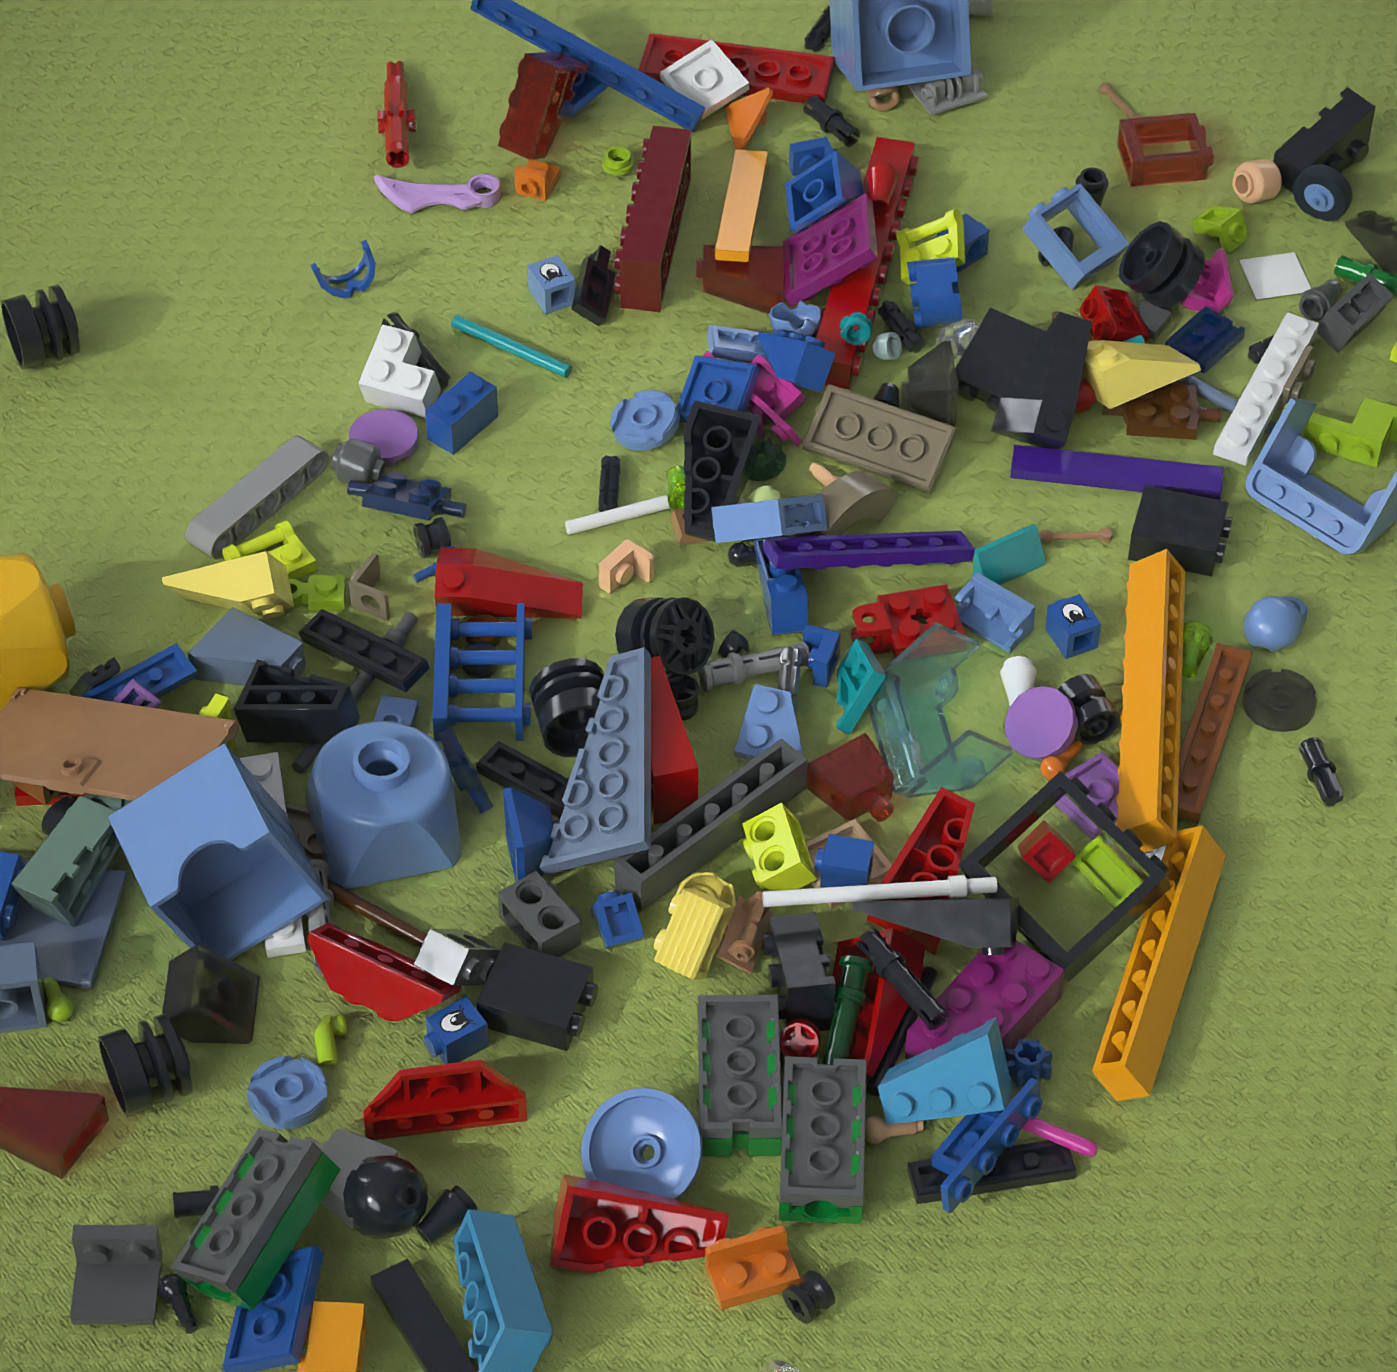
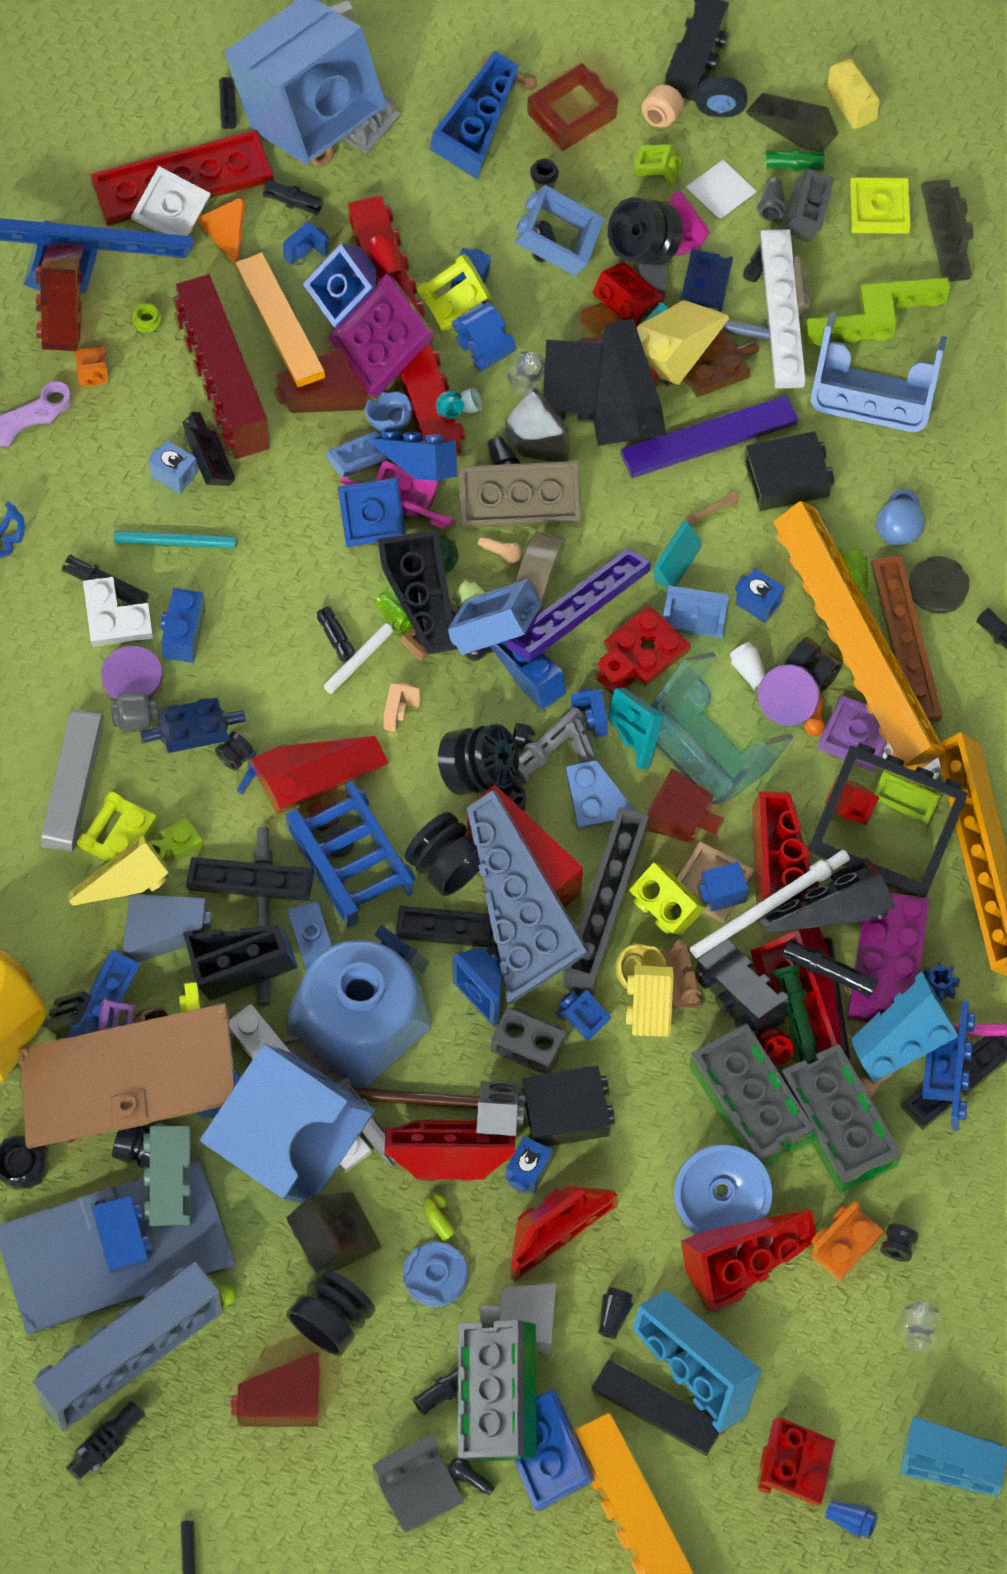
camera: 30 degrees left, 15 degrees up
(362, 585) = (212, 829): dark tan bracket -> none
(385, 1196) = (571, 1323): black cylinder -> none
(645, 420) = (327, 561): medium blue tile -> none
(902, 326) = (468, 376): black axle -> none
(1058, 118) = (473, 120): none -> blue wedge

